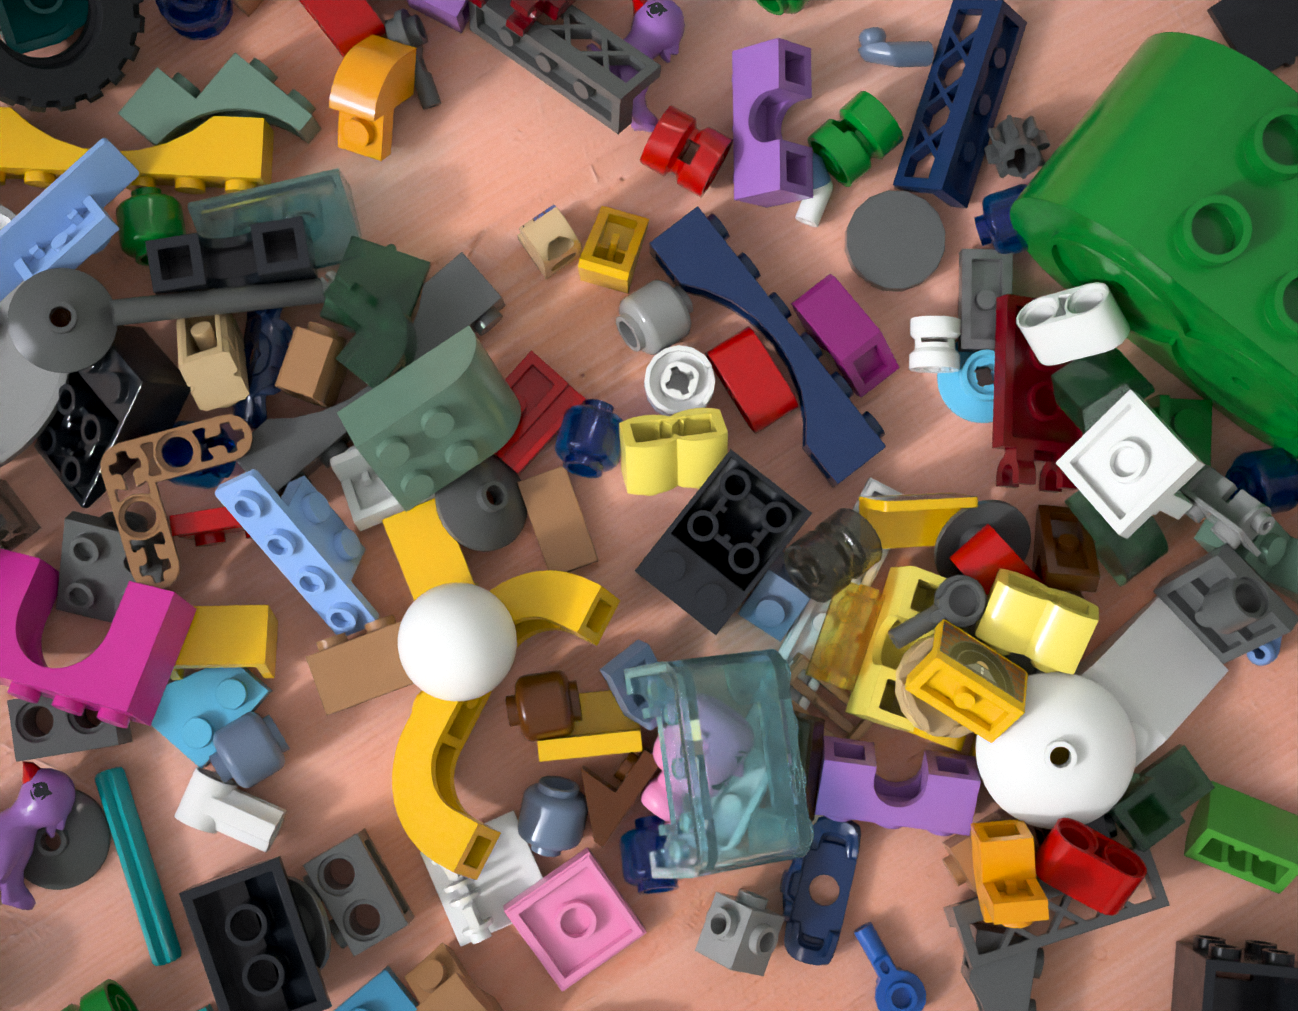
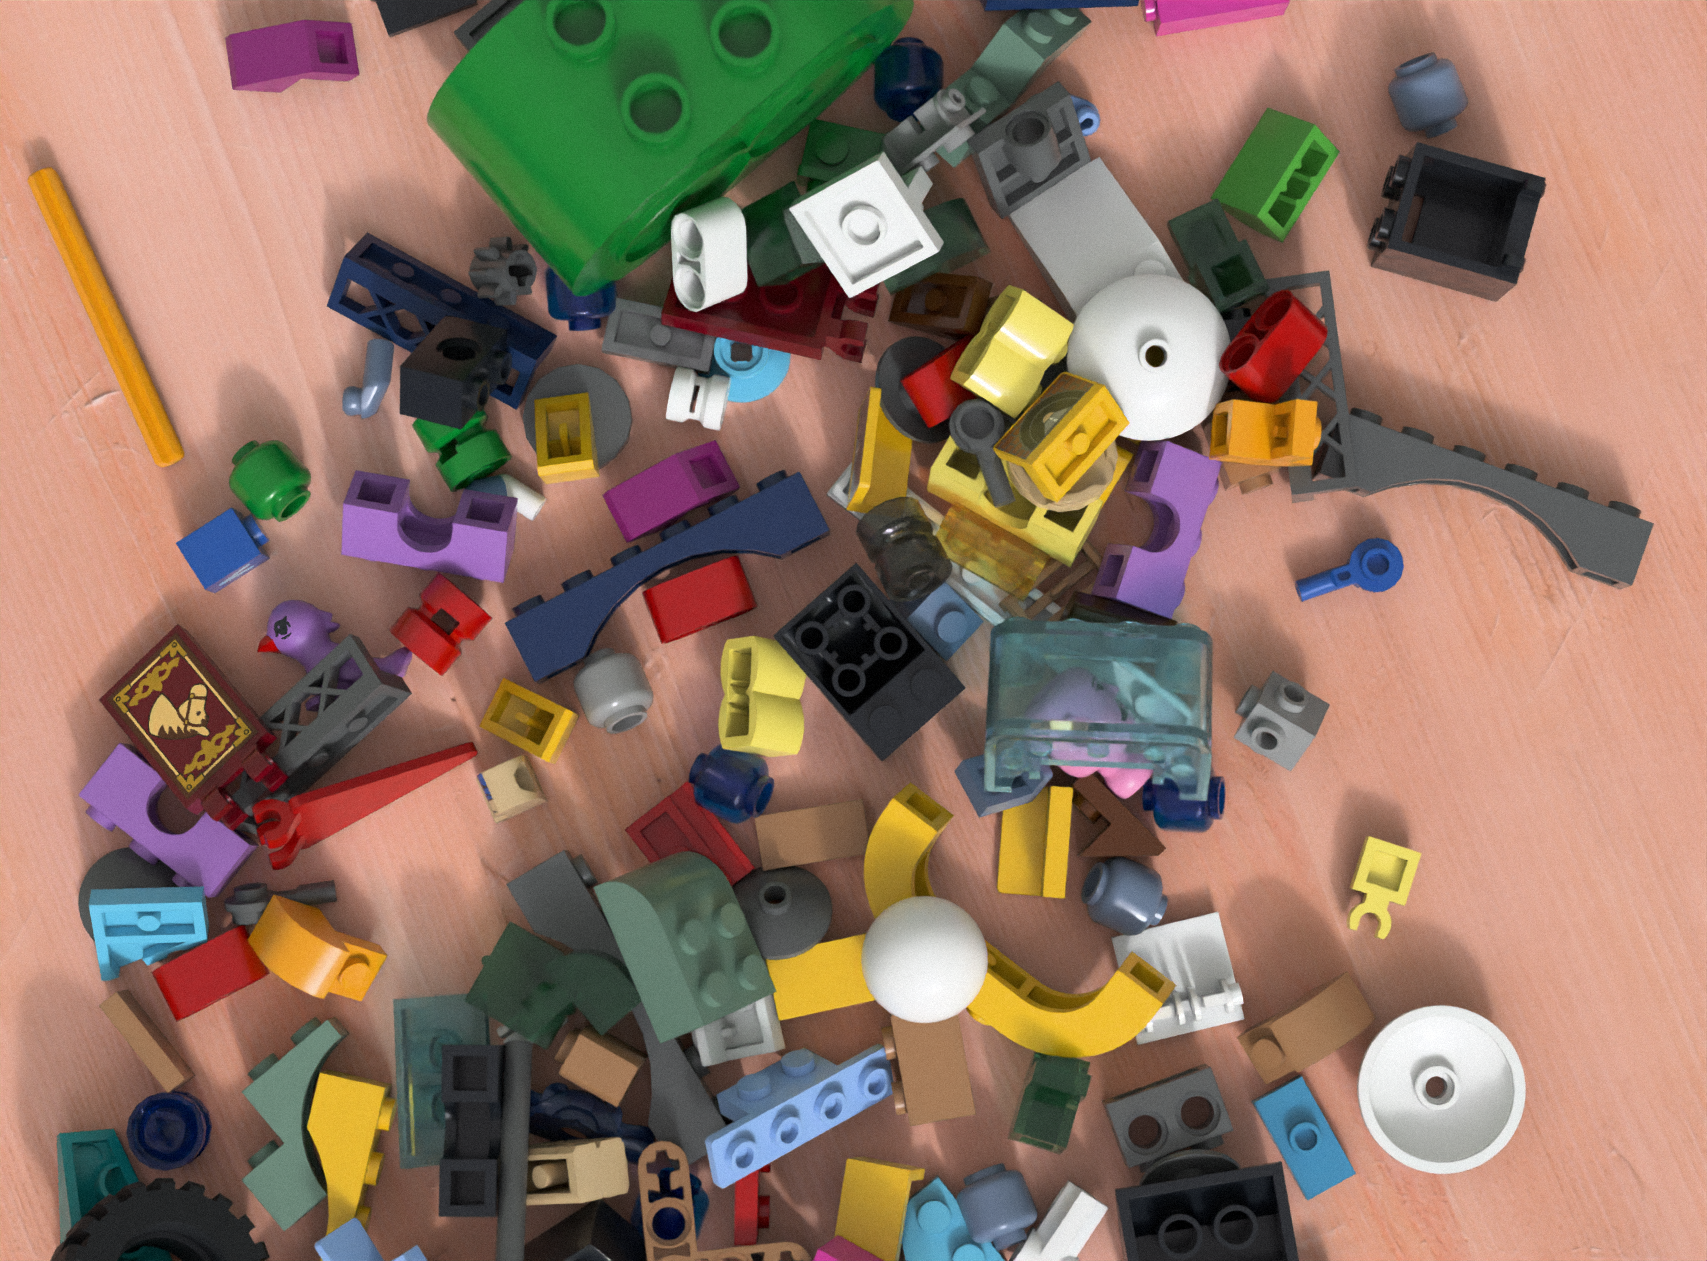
camera: 80 degrees left, 0 degrees up
(147, 217) = (409, 1218): green head -> none
(352, 781) = (1049, 1101): none -> clear green brick
(499, 81) = (329, 809): none -> red flag
(544, 705) = (1006, 882): reddish brown head -> none
(574, 919) = (1236, 892): bright pink tile -> none
(679, 380) = (687, 677): white wheel -> none
(811, 927) = (1289, 645): dark blue piece -> none
(873, 230) = (565, 438): none -> yellow slope
(917, 113) = (454, 371): none -> black brick

